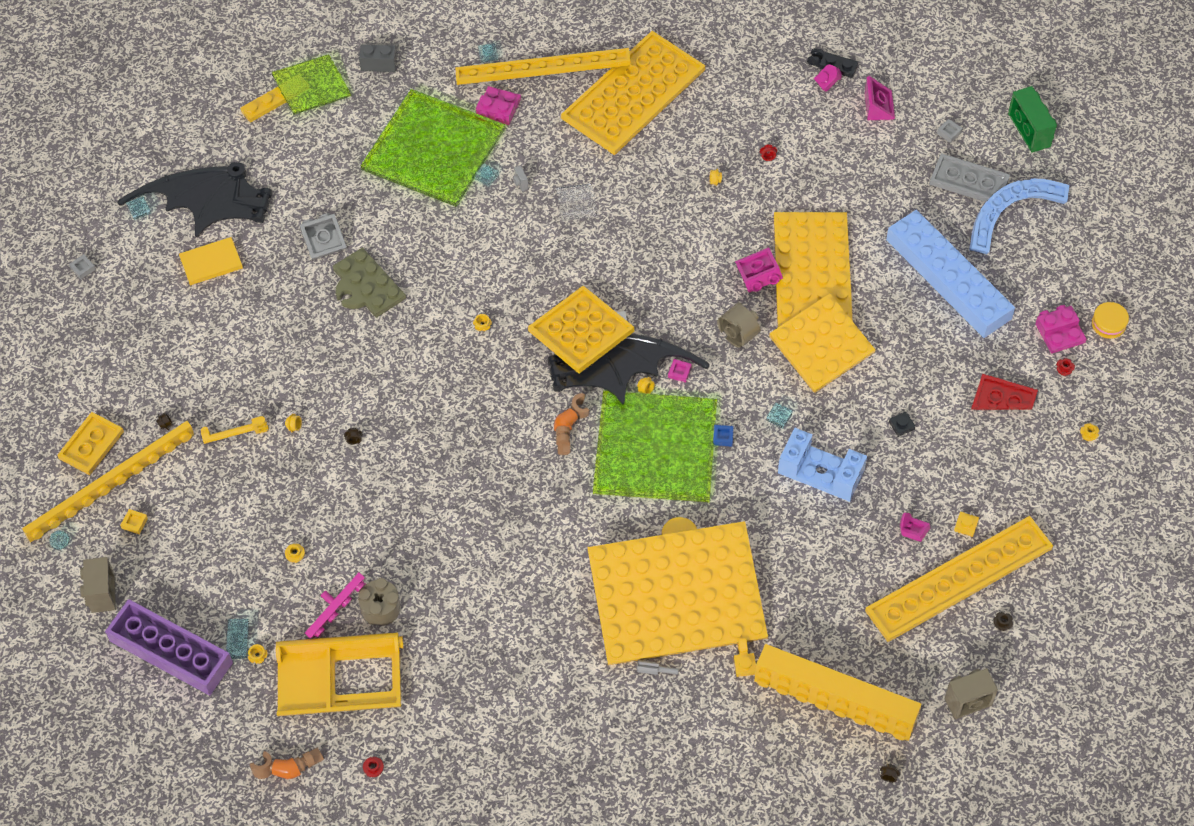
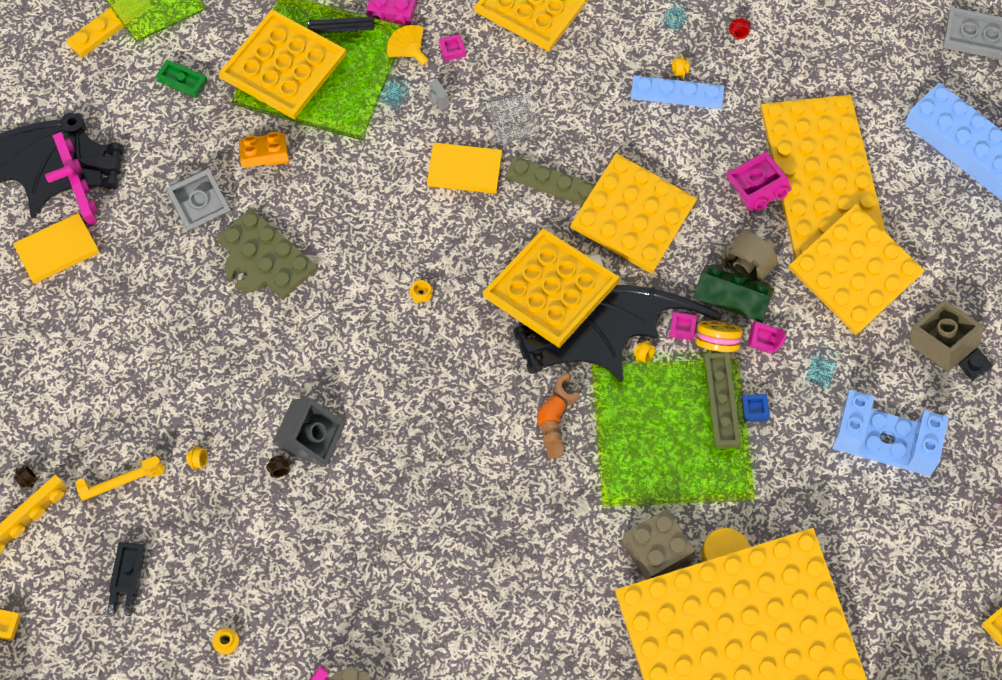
camera: 10 degrees left, 5 degrees up
(228, 499) = (126, 576): none -> black hinge
(231, 203) = (72, 169): none -> dark pink plate
(324, 145) = (181, 78): none -> green plate
(376, 205) = (263, 150): none -> light orange plate
(380, 413) = (309, 431): none -> dark grey slope
(403, 142) = (282, 64): none -> yellow plate
(453, 117) = (341, 24): none -> black axle
(503, 136) = (407, 42): none -> yellow hand
(532, 235) = (464, 168): none -> yellow tile
(538, 144) = (452, 47): none -> dark pink tile
(599, 253) = (549, 180): none -> olive plate
(627, 521) = (658, 545): none -> dark tan brick
(657, 283) = (633, 213): none -> yellow plate
(696, 425) = (721, 400): none -> olive plate
(704, 379) = (719, 336): none -> yellow head
(709, 196) = (677, 92): none -> light blue plate
(718, 139) = (674, 18): none -> clear light blue plate
(722, 349) = (733, 292): none -> dark green brick
(741, 386) = (766, 338): none -> dark pink plate
(881, 398) = (946, 335): none -> dark tan brick

